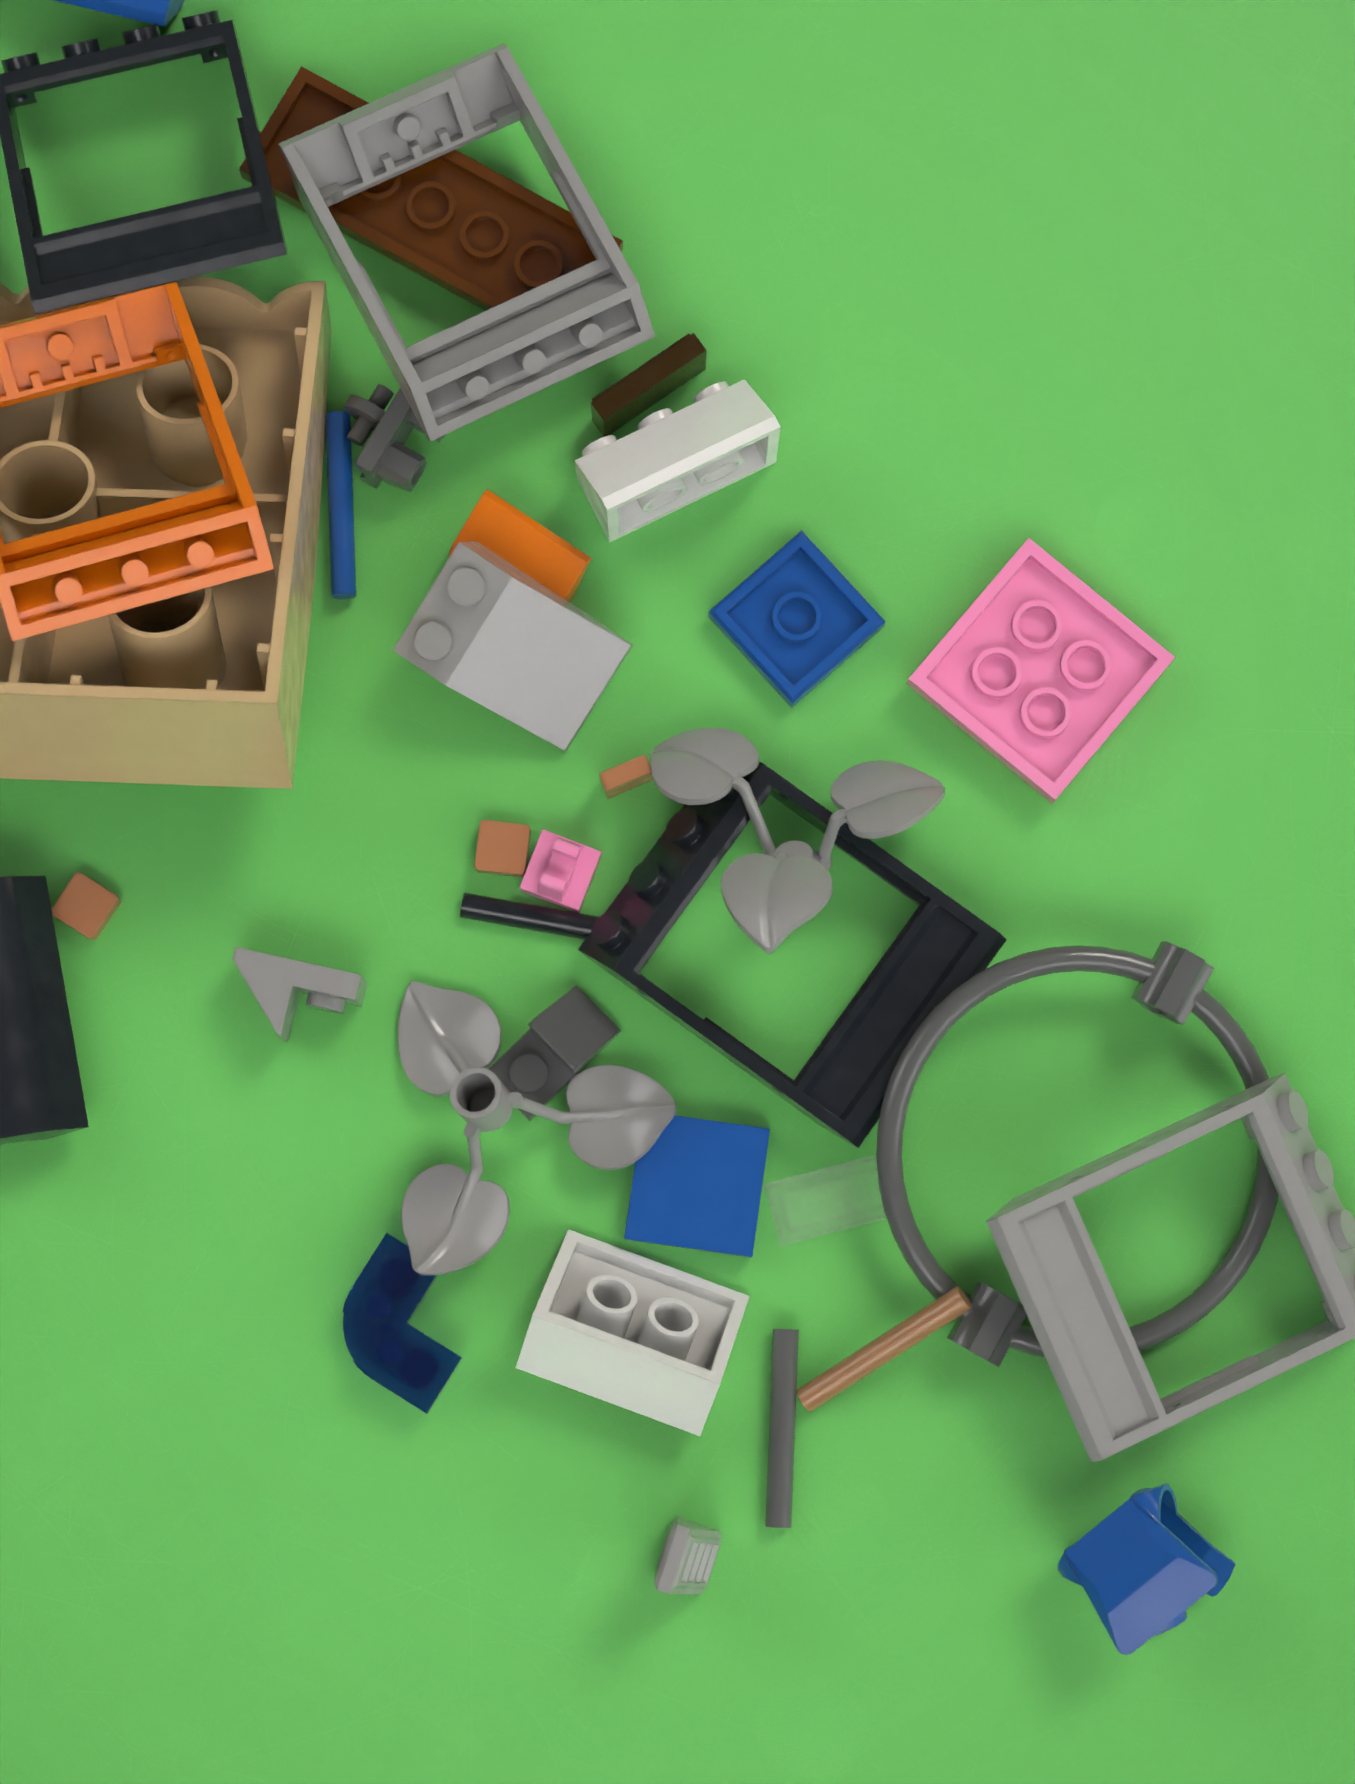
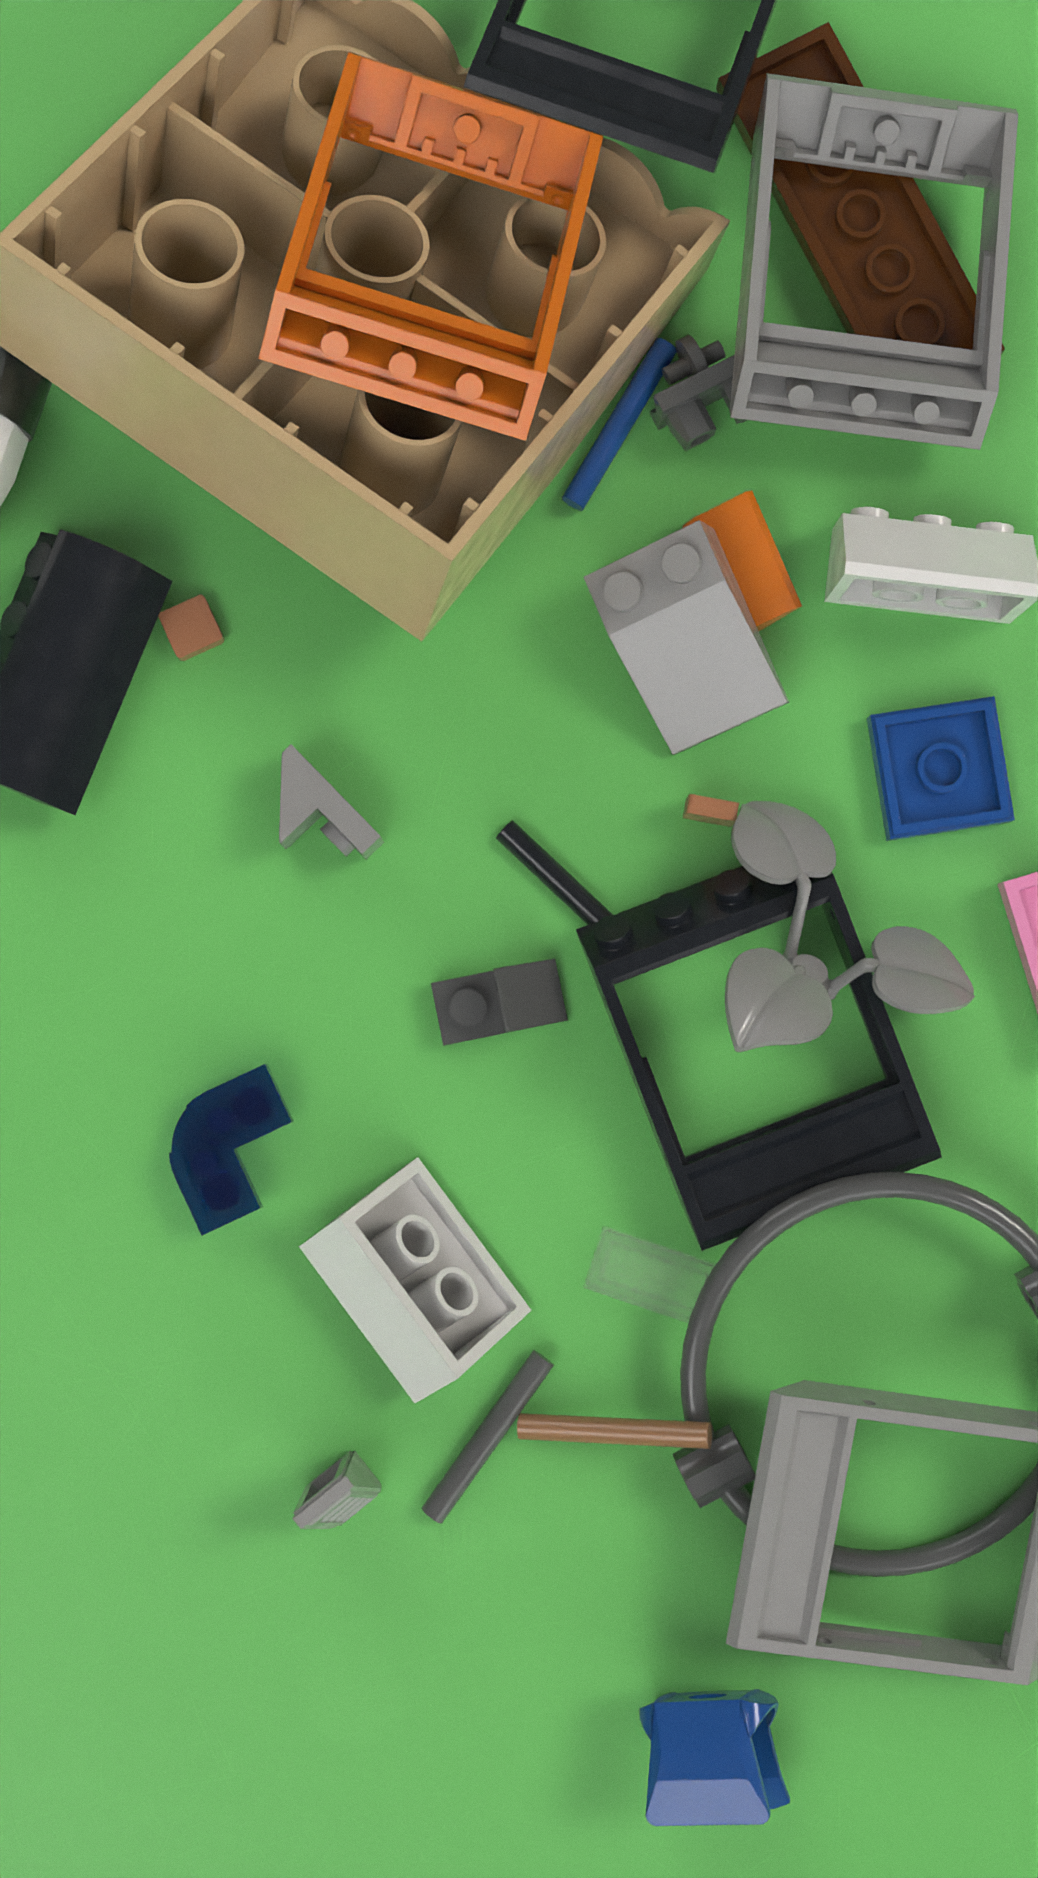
camera: 25 degrees right, 5 degrees up
(445, 1049) = (416, 934): light grey plant -> none
(502, 848) = (568, 803): nougat piece -> none
(560, 871) = (604, 854): bright pink tile -> none
(648, 384) = (946, 487): dark brown tile -> none
(700, 1187) = (548, 1190): blue tile -> none

